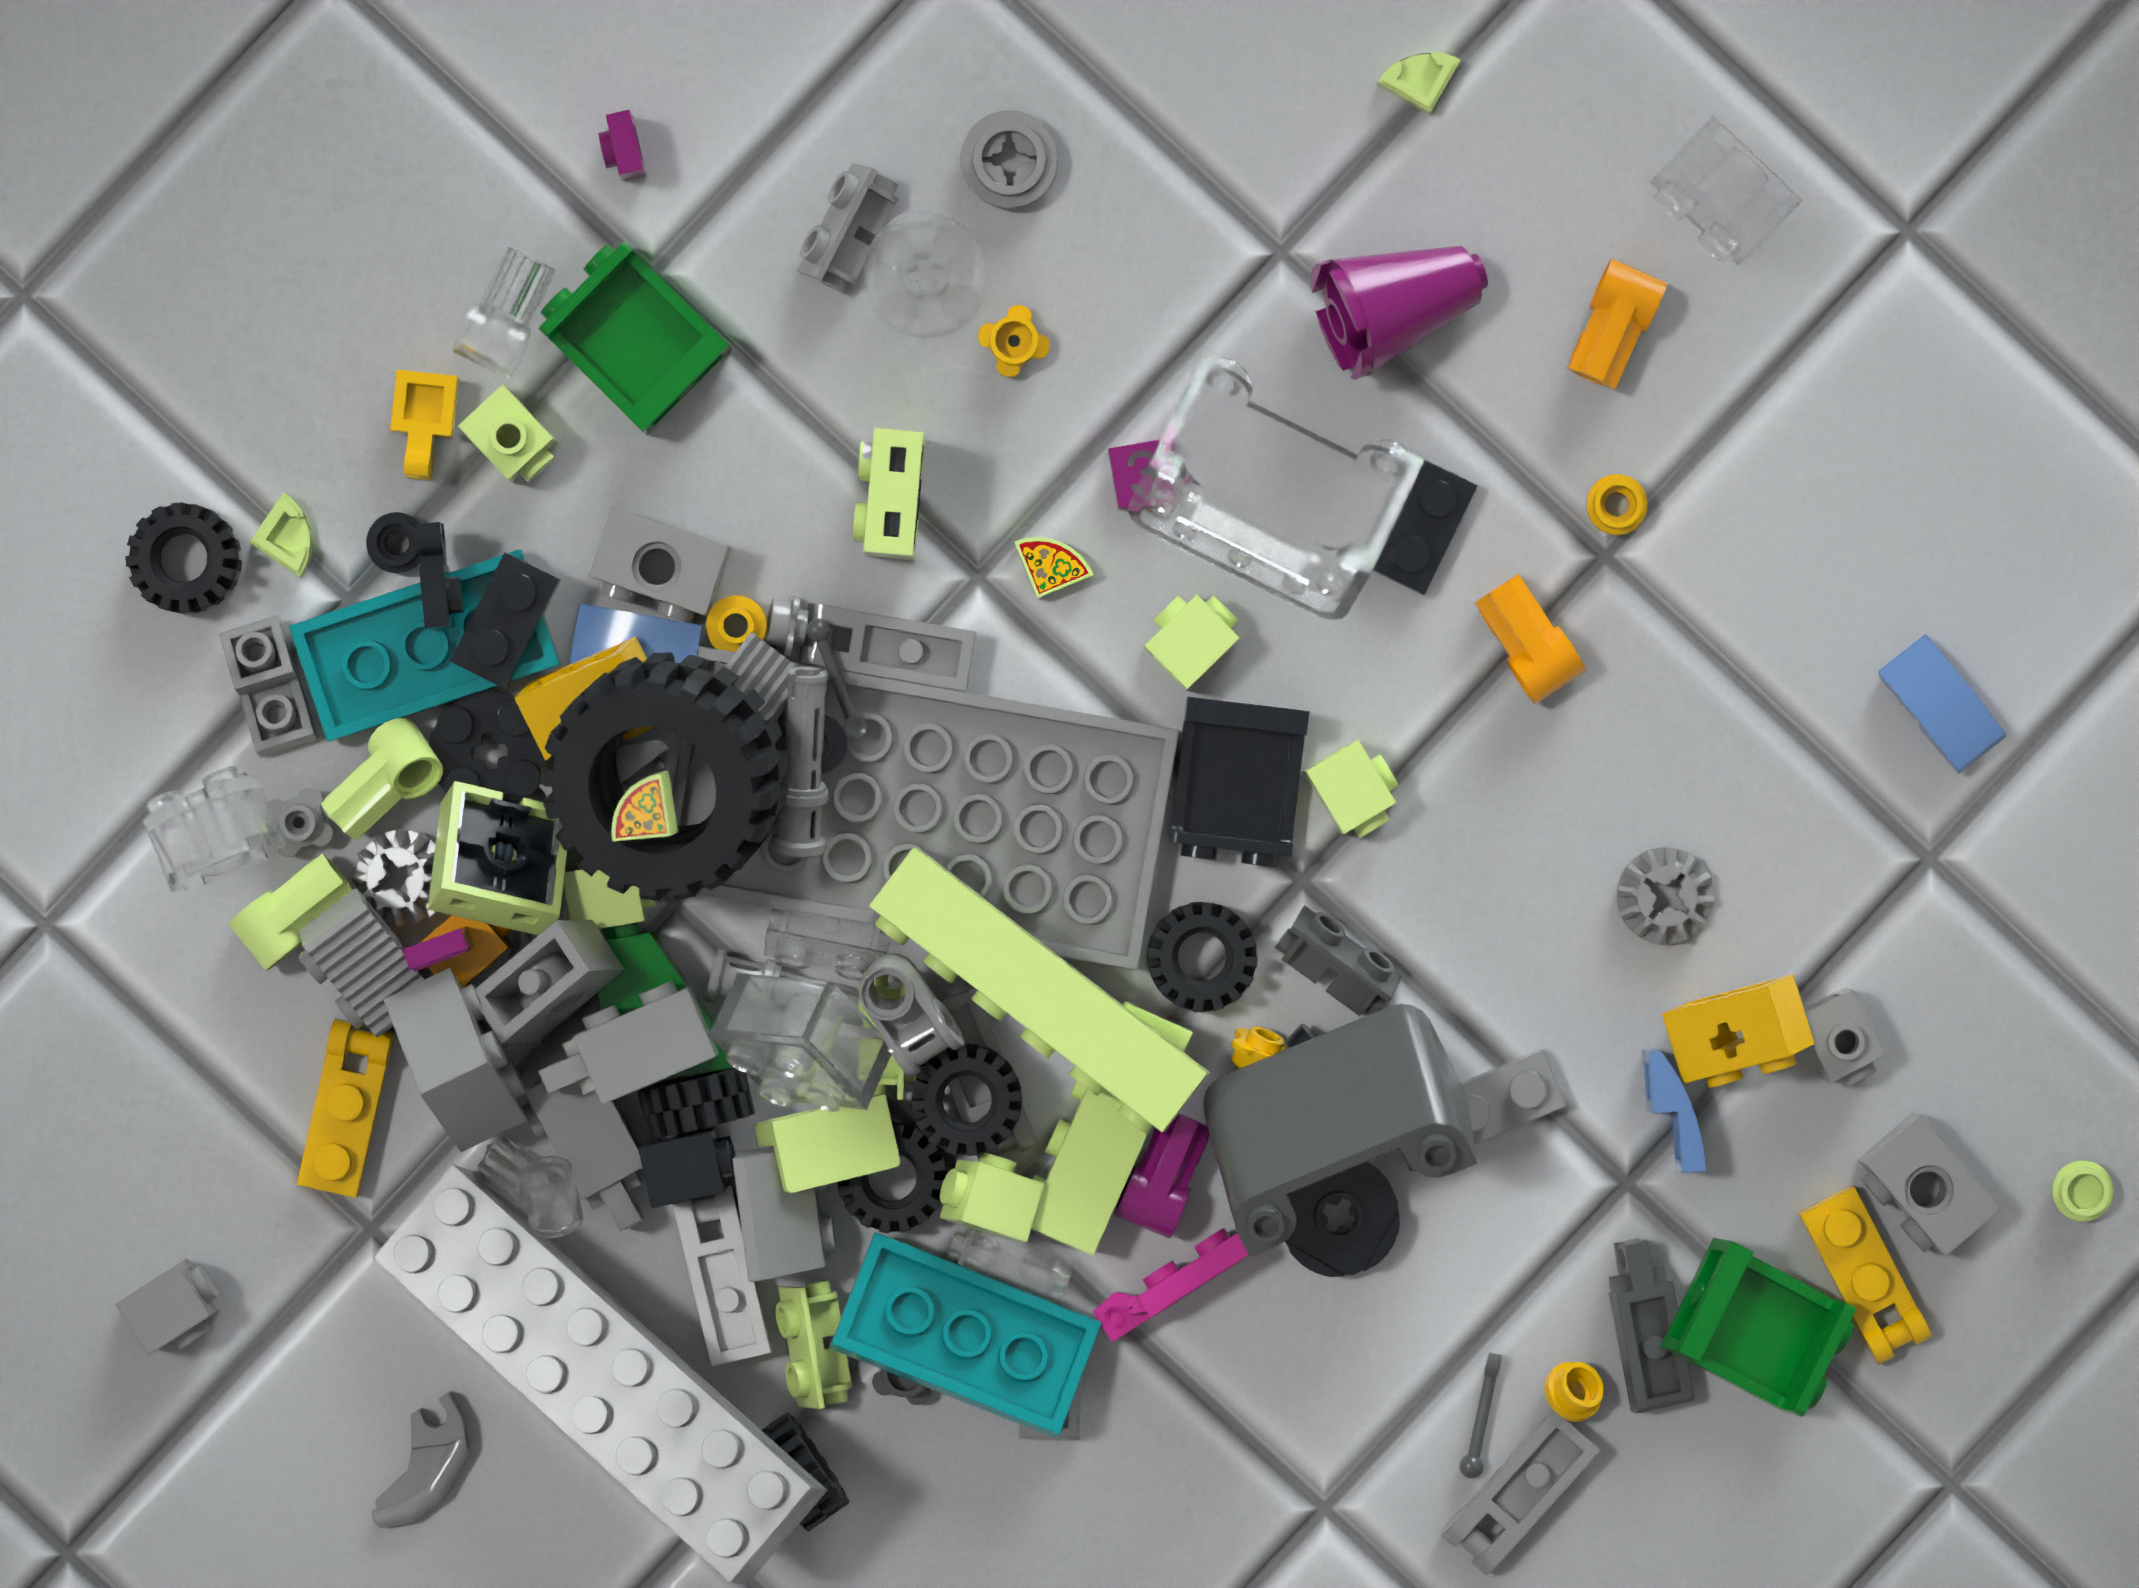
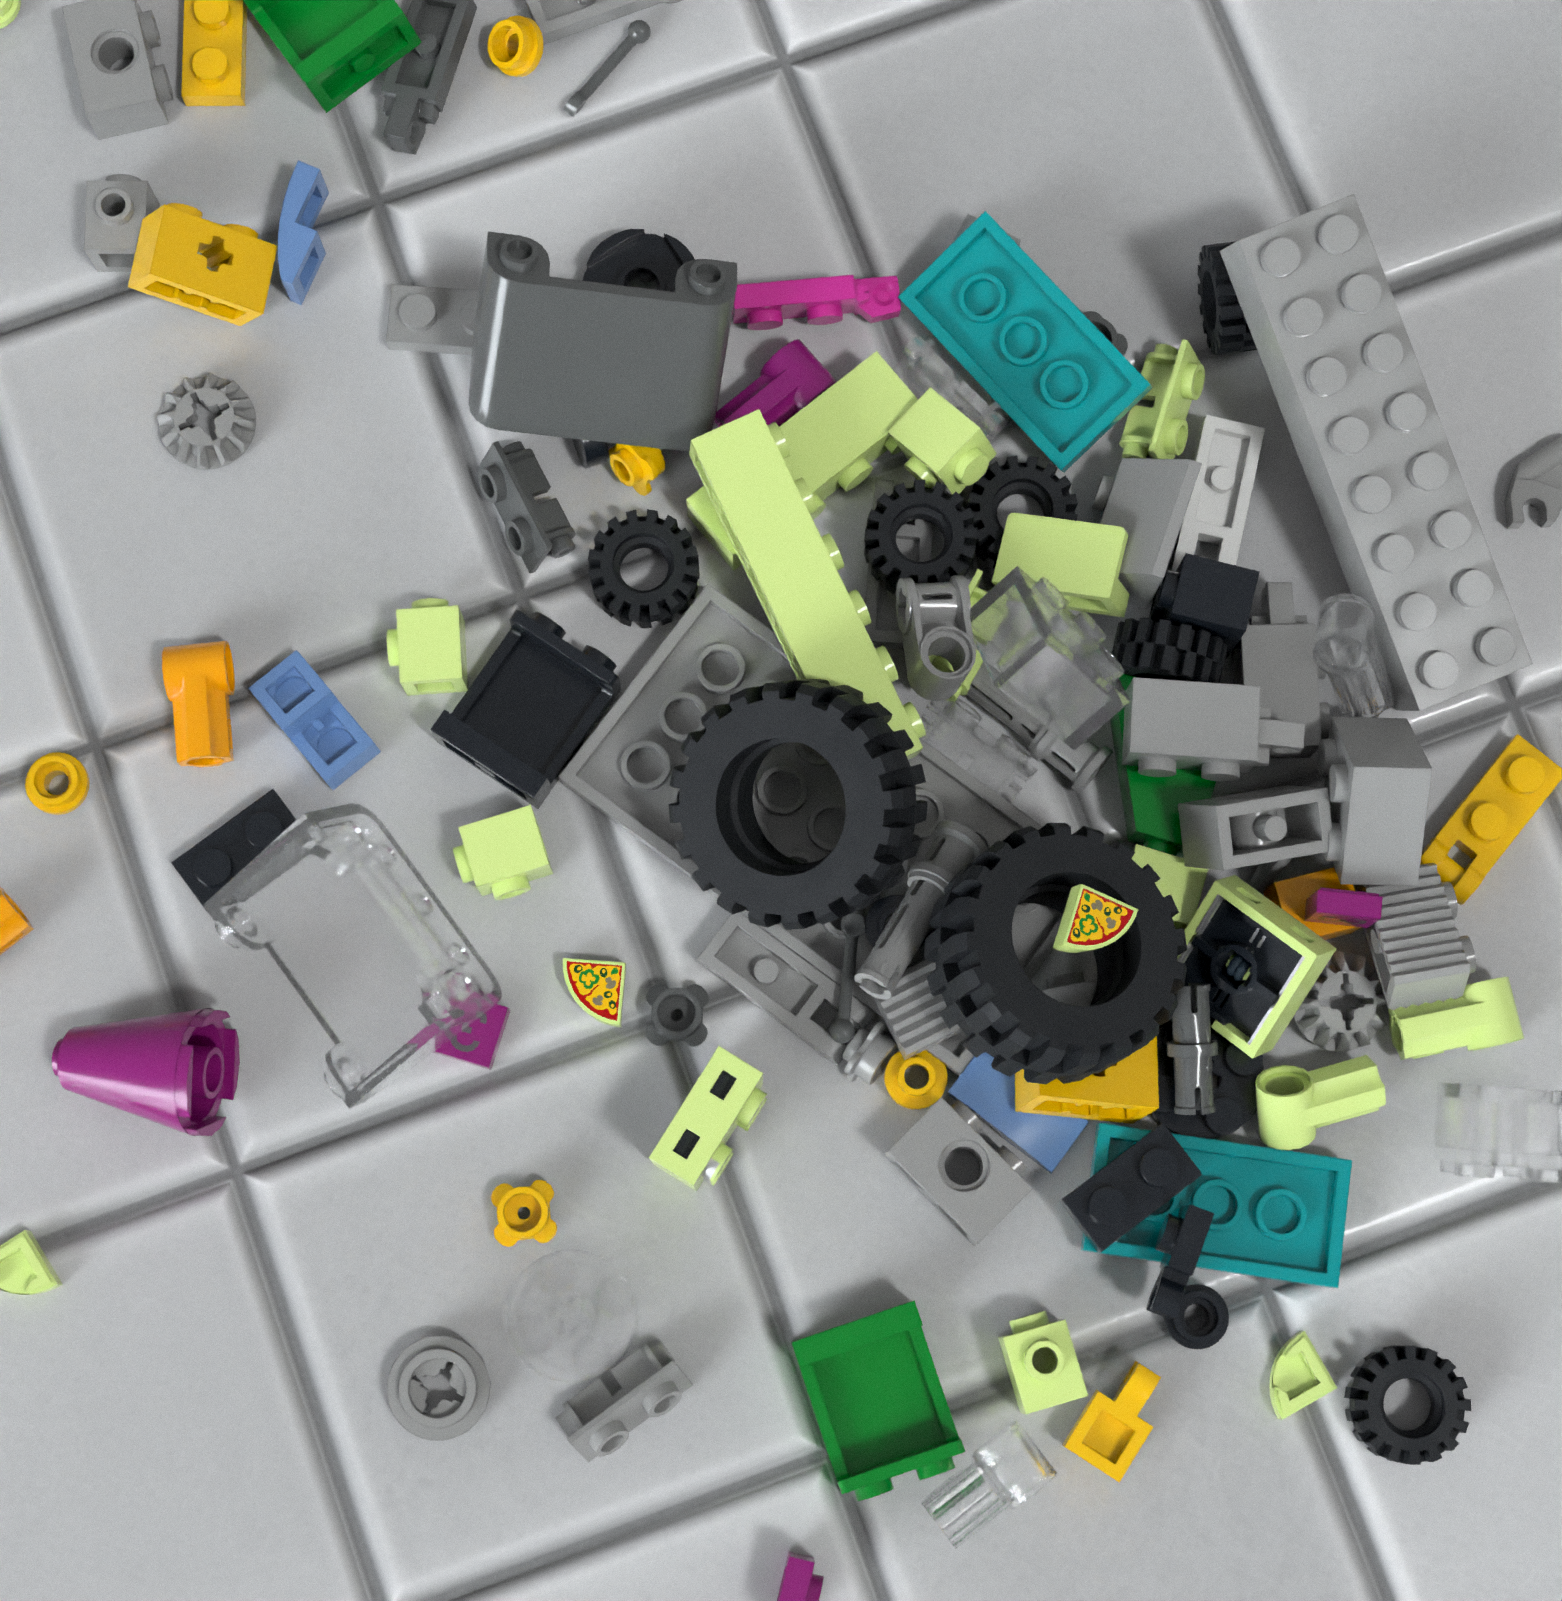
camera: 155 degrees left, 10 degrees down
(268, 686) = (1380, 1242): light grey slope -> none
(314, 831) = (1398, 1111): light grey plate -> none
(508, 763) = (1192, 1050): none -> dark grey pin
(967, 726) = (721, 819): none -> black tyre
(986, 582) = (690, 1027): none -> dark grey plate
(1422, 674) = (314, 720): none -> medium blue slope

